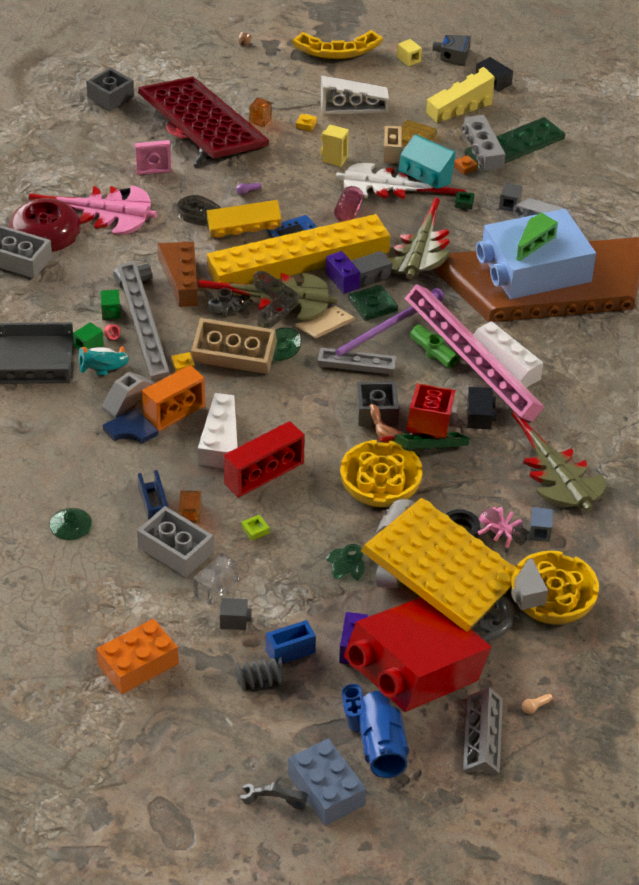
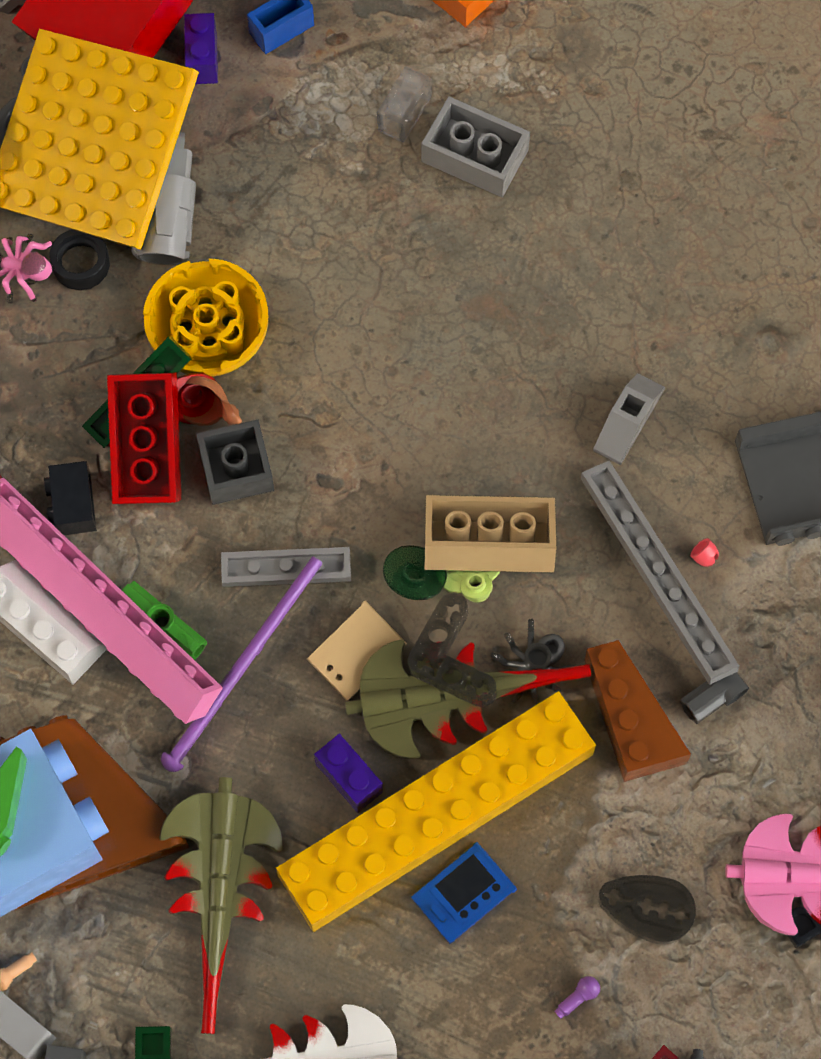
camera: 170 degrees right, 25 degrees up
(70, 523) = (636, 187): clear green dish -> none
(88, 336) = (735, 523): green brick -> none
(102, 359) = (695, 471): teal animal -> none
(110, 304) = (727, 609): green brick -> none
(132, 426) = (607, 363): dark blue tile -> none
(151, 487) = (524, 199): dark blue window -> none
(153, 157) = (780, 1015): bright pink tile -> none
(174, 397) = (555, 401): orange brick -> none
(181, 361) = (570, 513): yellow plate -> none
(190, 505) = (474, 221): clear orange brick -> none
(219, 432) = (463, 349): white wedge -> none
(234, 614) = (366, 59): dark grey brick -> none
(244, 218) = (557, 875): yellow brick -> none
(255, 527) = (372, 206): lime plate -> none
(264, 459) = (385, 308): red brick -> none
(346, 563) = (232, 178): clear green plate -> none
(348, 204) = (371, 968): clear pink piece -> none
(373, 268) = (301, 795): dark grey brick -> none
(373, 302) = (284, 725): clear green tile -> none

